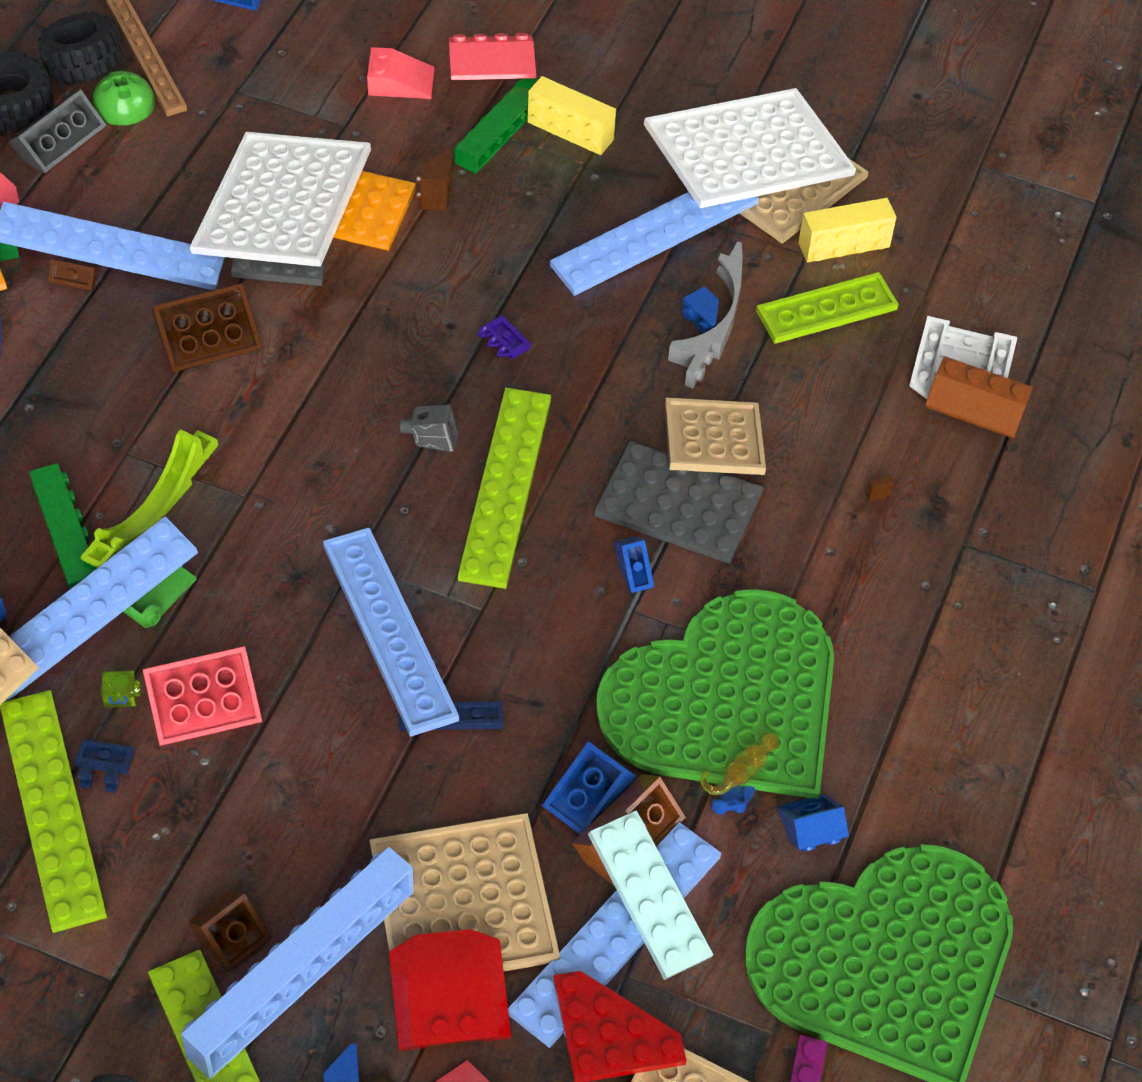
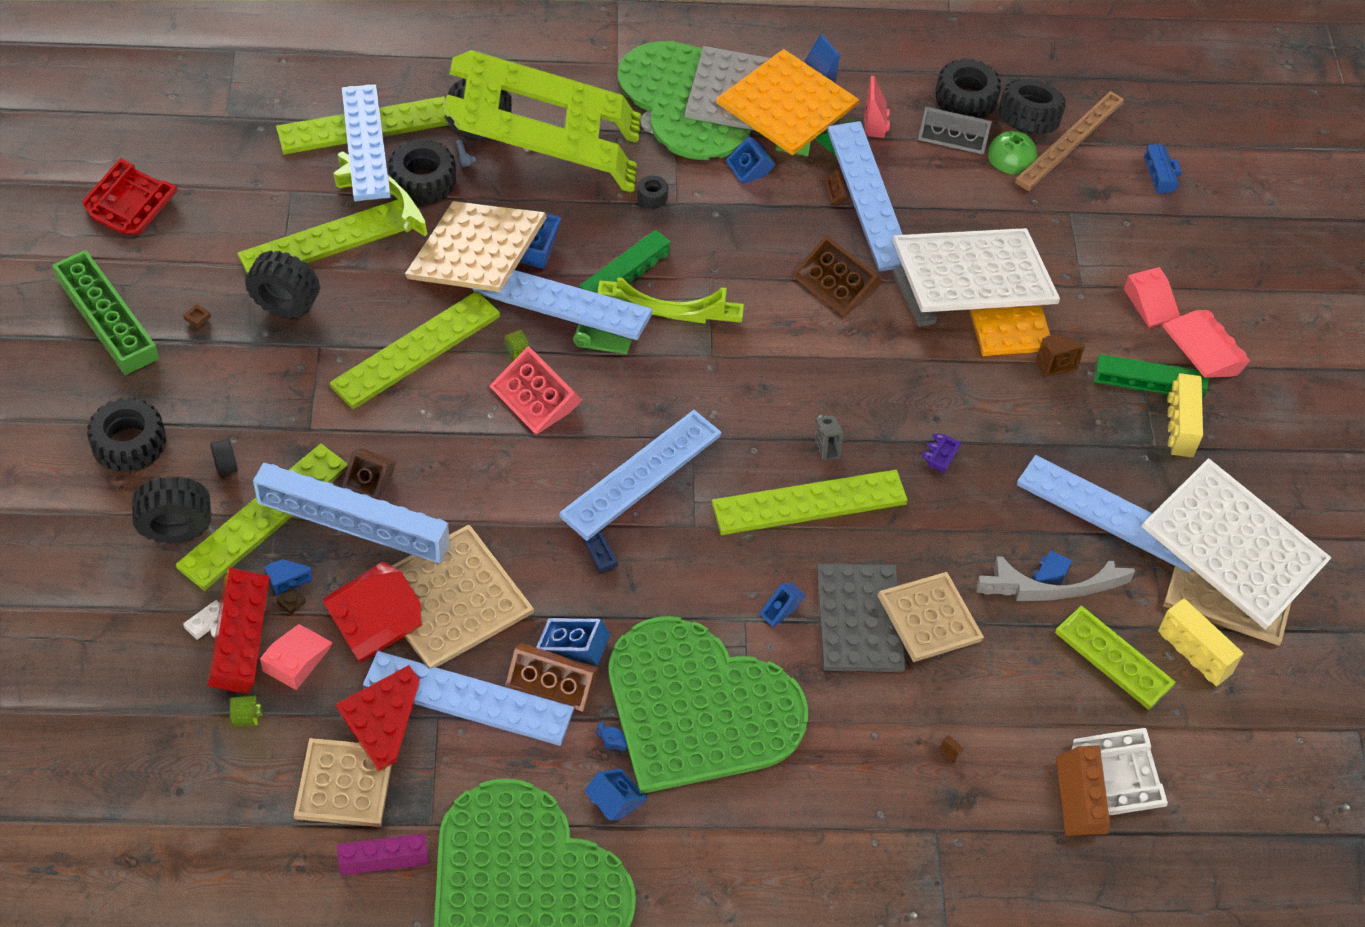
camera: 65 degrees right, 0 degrees up
(103, 757) = (463, 359): dark blue plate -> none
(650, 895) = (498, 703): light aqua plate -> none
(744, 766) = (636, 730): clear yellow piece -> none

